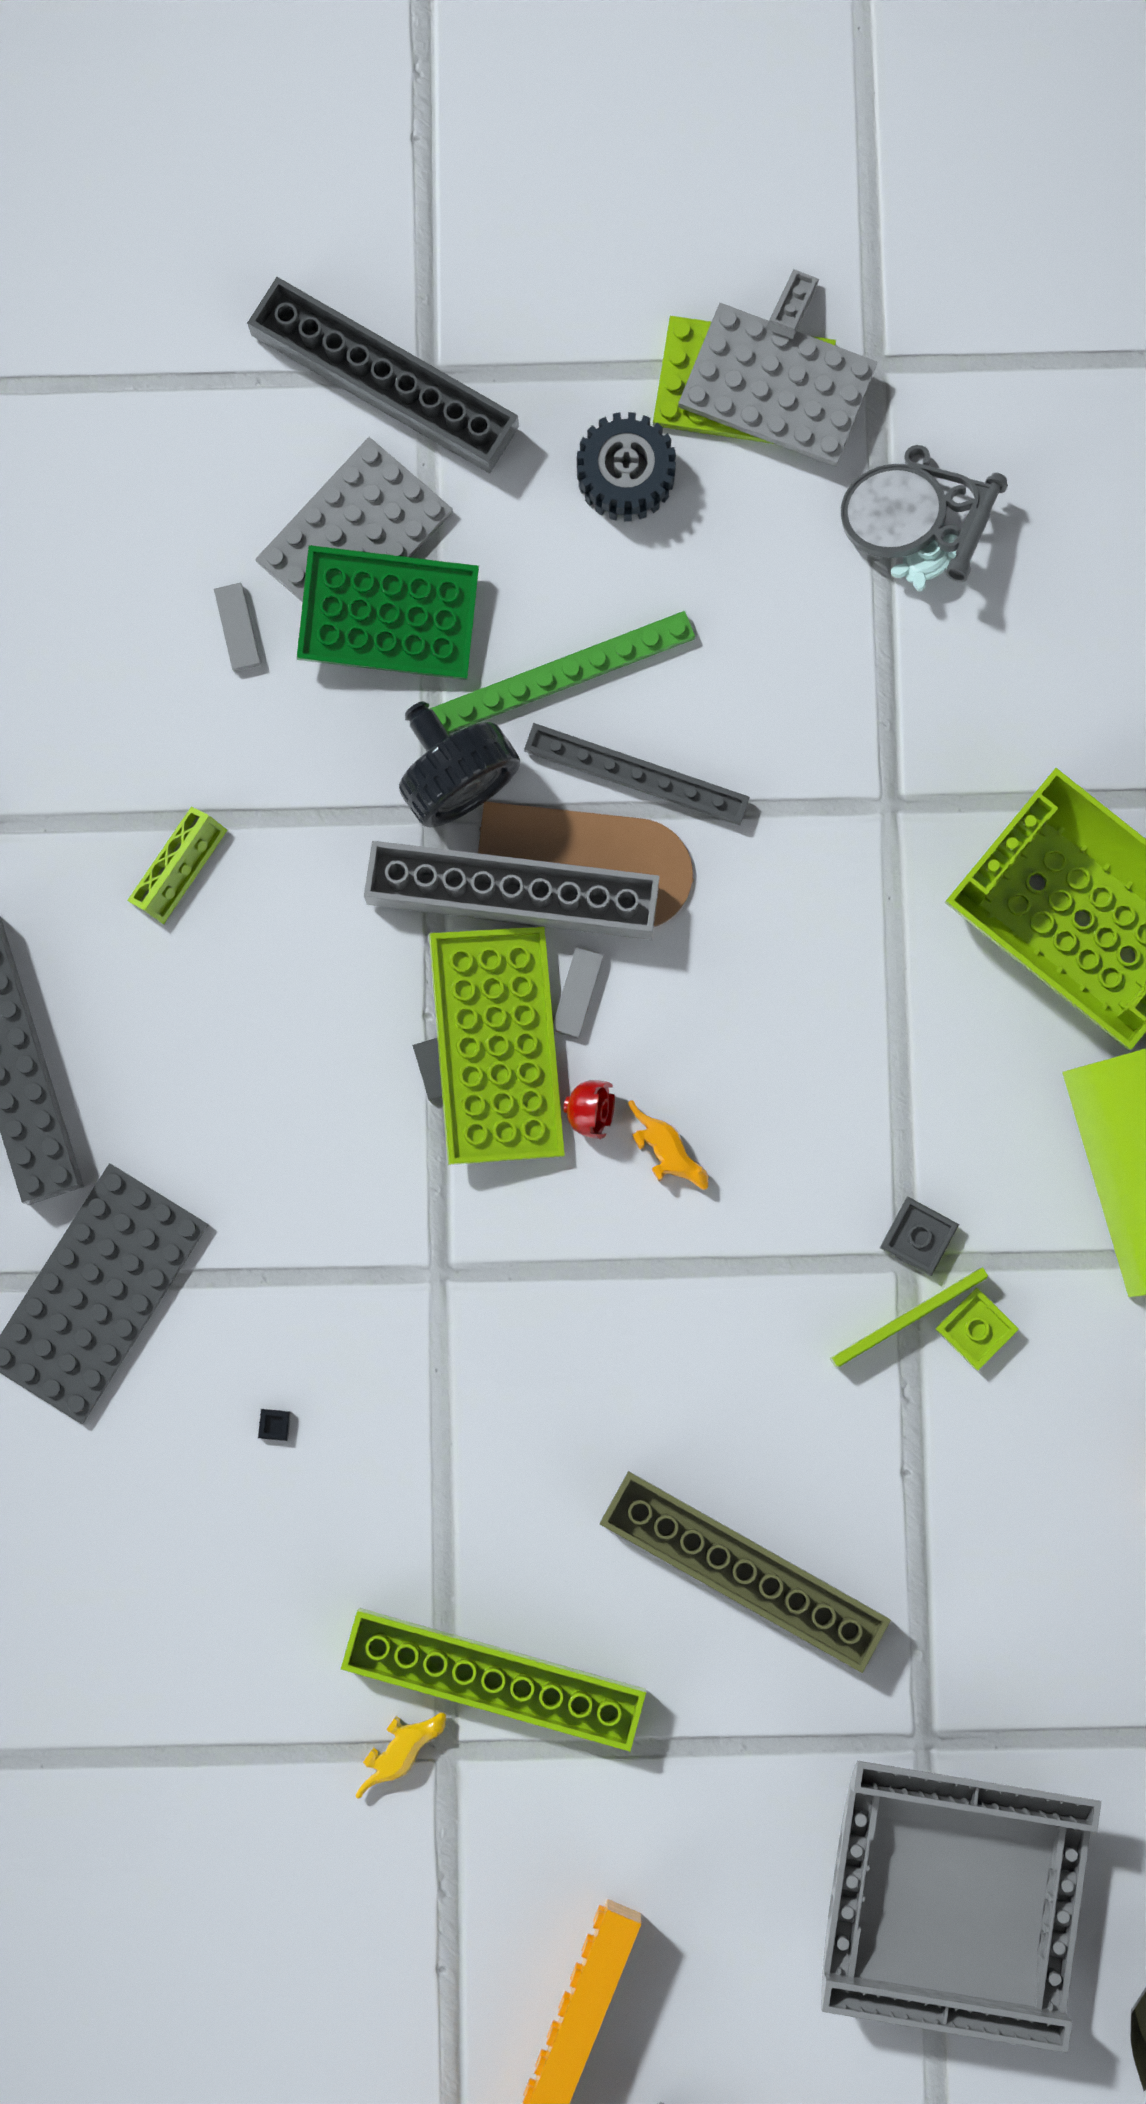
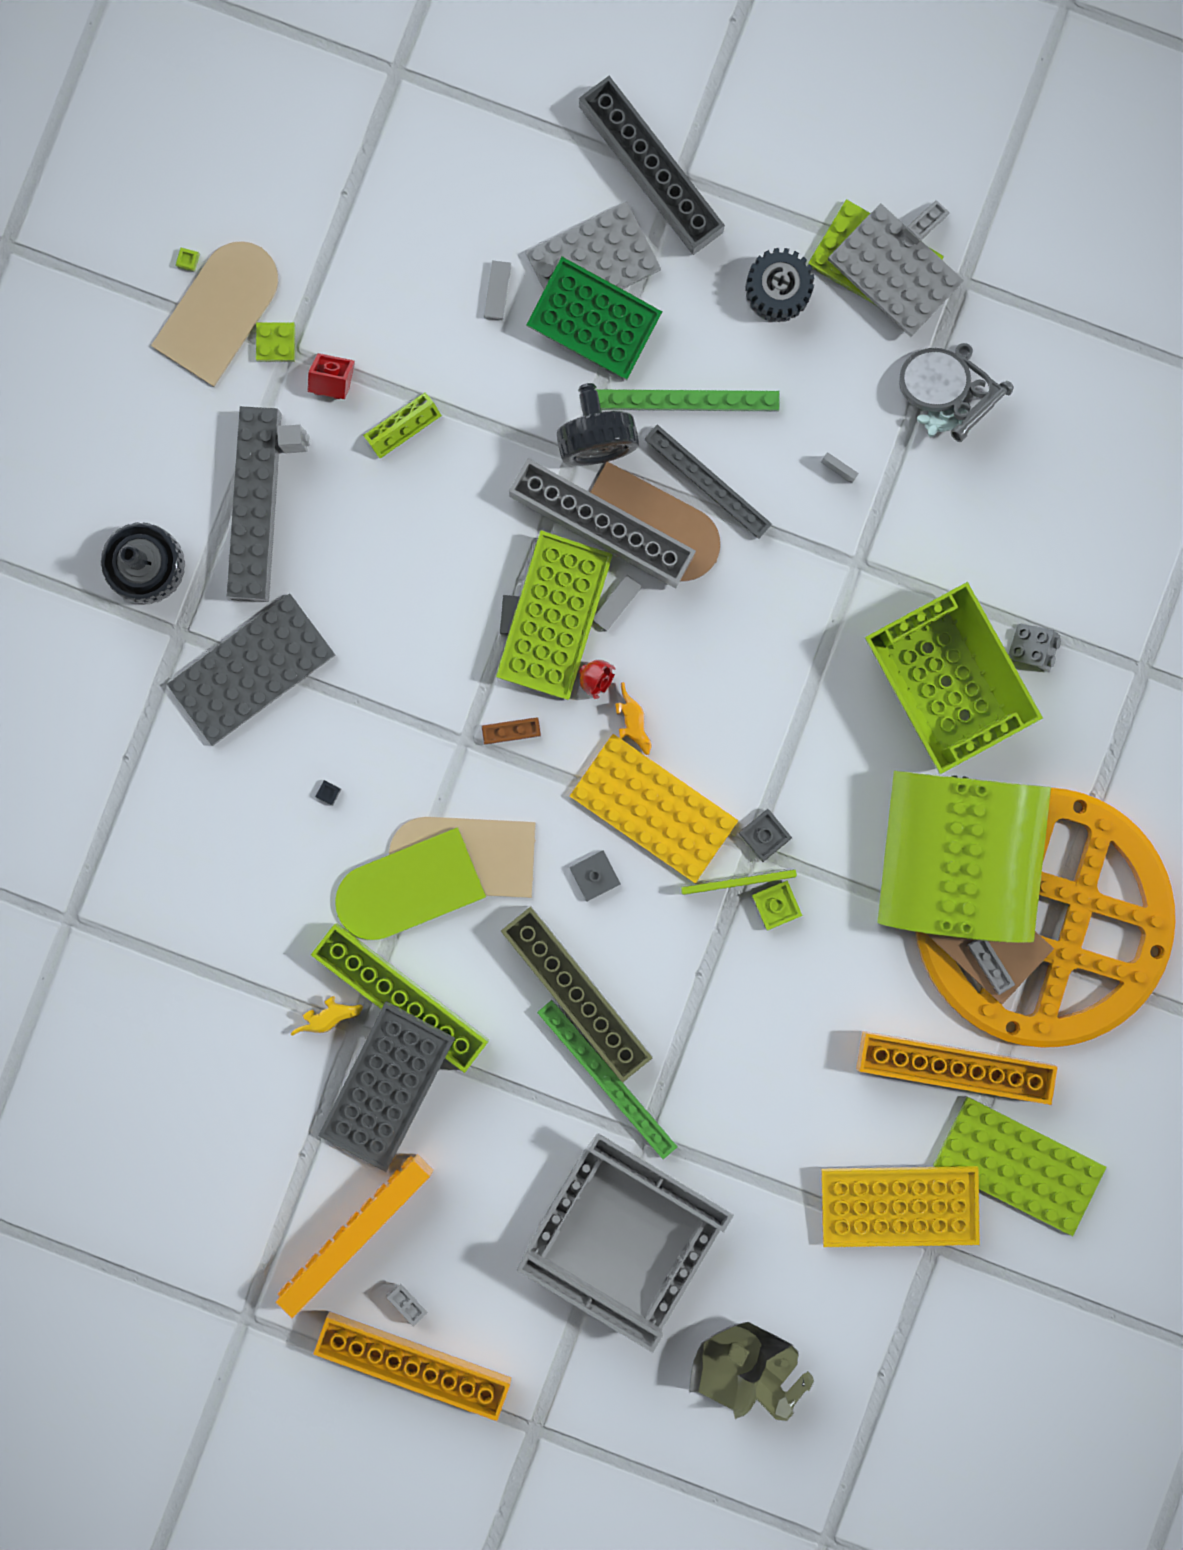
camera: 15 degrees right, 5 degrees up
(30, 943) = (293, 438): none -> light grey brick
(49, 836) = (330, 376): none -> red slope
(442, 1515) = (408, 887): none -> lime piece
(500, 1232) = (511, 731): none -> dark orange tile
(505, 1437) = (497, 848): none -> tan piece
(525, 1818) = (386, 1086): none -> dark grey plate
(701, 1390) = (595, 875): none -> dark grey plate
(746, 1261) = (654, 808): none -> yellow plate
(811, 682) = (839, 467): none -> light grey tile
(838, 1678) = (607, 1079): none -> bright green plate

